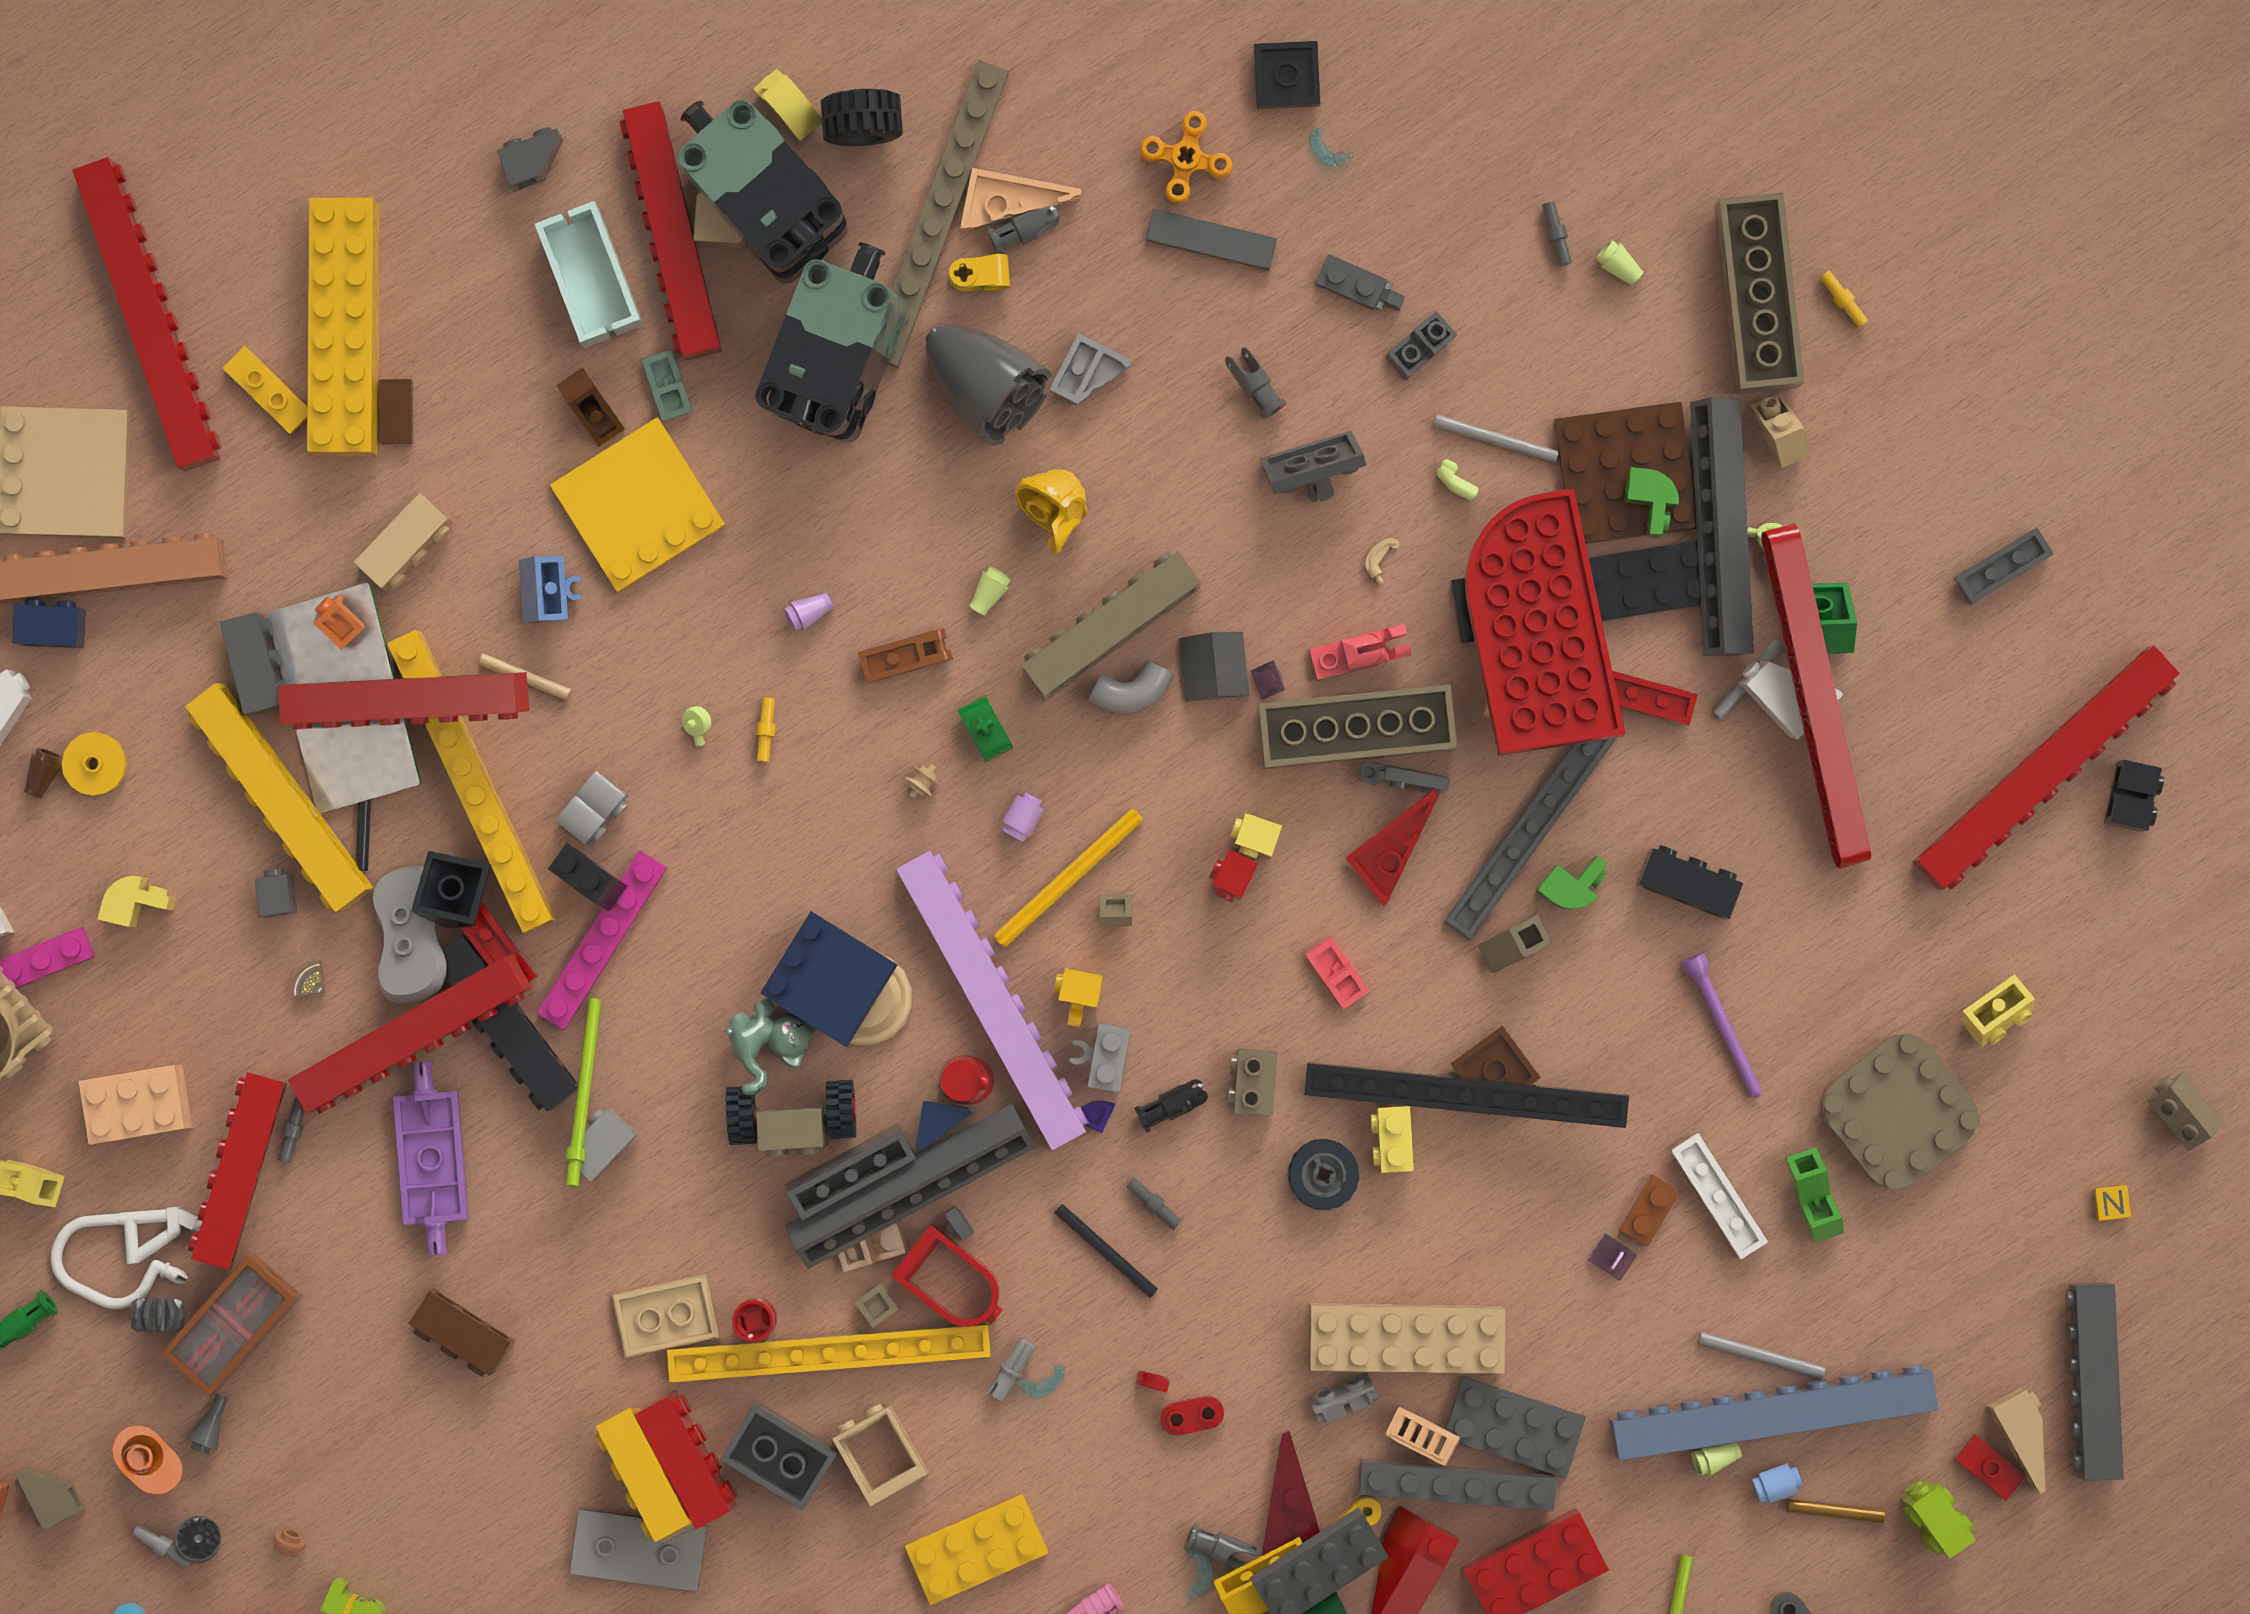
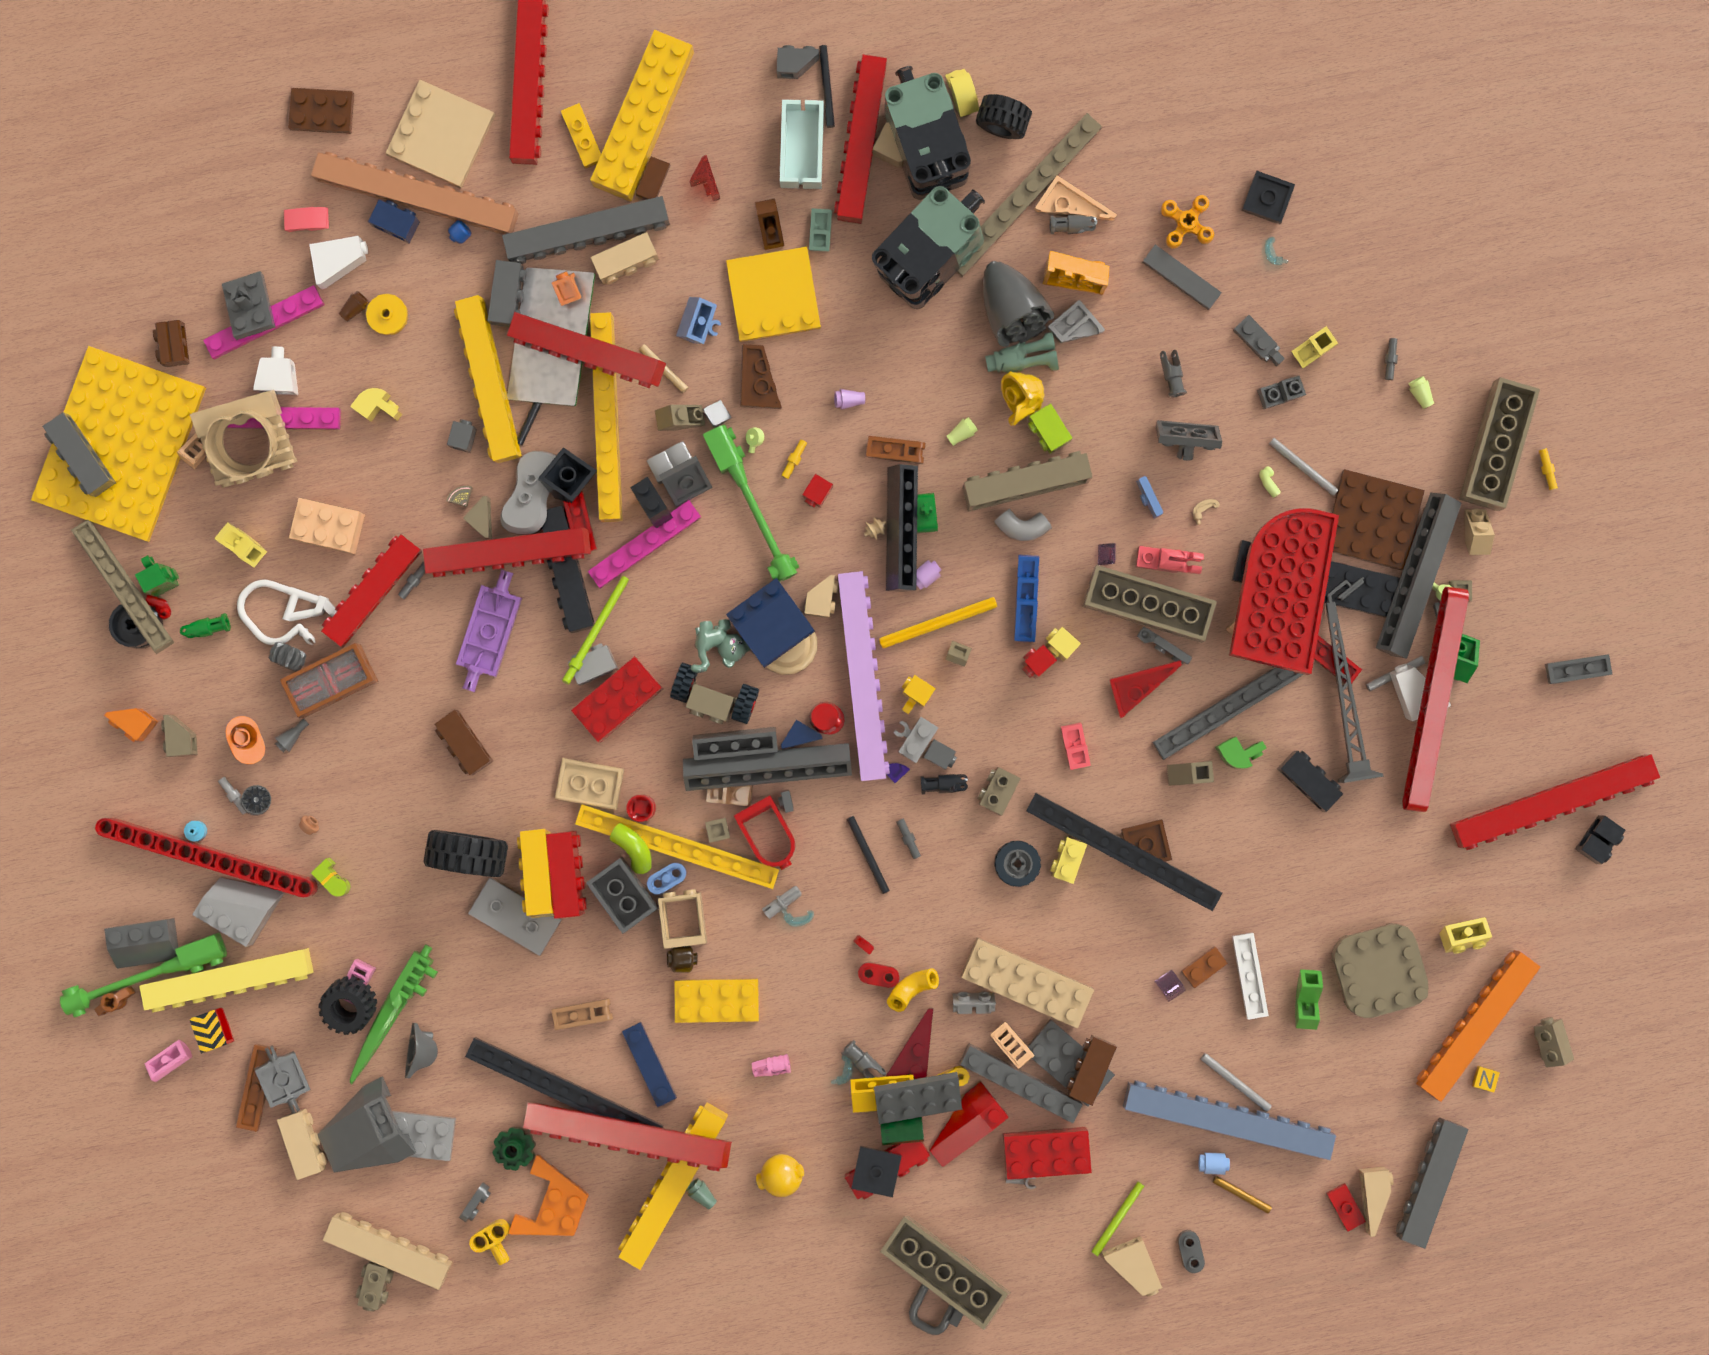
camera: 25 degrees right, 0 degrees up
(149, 602) = (459, 232): none -> blue piece
(331, 524) = (586, 230): none -> dark grey brick
(351, 1000) = (480, 517): none -> dark tan slope
(466, 374) = (704, 174): none -> clear red slope
(531, 1490) = (465, 853): none -> black tyre
(576, 738) = (679, 417): none -> dark tan slope
(590, 174) = (826, 86): none -> black bar
(624, 826) = (685, 481): none -> dark grey plate
(628, 710) = (717, 414): none -> slope
(655, 1179) = (617, 699): none -> red brick
(665, 638) = (757, 384): none -> reddish brown wing
(673, 768) = (730, 459): none -> bright green bar
(767, 1379) = (634, 847): none -> lime cylinder
(818, 762) = (817, 491): none -> red brick
(832, 1404) = (667, 878): none -> medium blue plate
(885, 913) = (819, 599): none -> tan slope
(902, 1511) = (681, 959): none -> dark brown head
(960, 765) = (901, 528): none -> black brick
(987, 272) = (1037, 240): yellow piece -> none
(1019, 454) = (1015, 360): none -> sand green piece
(1058, 297) = (1076, 273): none -> light orange wedge
(1112, 536) = (1049, 429): none -> lime brick
(1150, 1065) = (940, 755): none -> dark grey brick
(1180, 790) = (1026, 598): none -> blue slope
(1214, 666) = (1078, 532): dark grey slope -> none
(1245, 1413) = (910, 987): none -> yellow cylinder
(1294, 575) = (1148, 497): none -> medium blue plate
(1440, 263) = (1315, 347): none -> light yellow brick
(1547, 1424) = (1090, 1069): none -> reddish brown brick
(1655, 490) = (1389, 538): bright green brick -> none
(1697, 969) = (1293, 833): medium lavender piece -> none
(1715, 1458) = (1182, 1132): yellowish green cone -> none
(1753, 837) = (1355, 769): none -> dark grey piece
(1793, 514) = (1464, 584): none -> dark tan tile
(1932, 1510) = (1302, 1225): lime brick -> none
(2068, 1131) = (1477, 1025): none -> orange brick

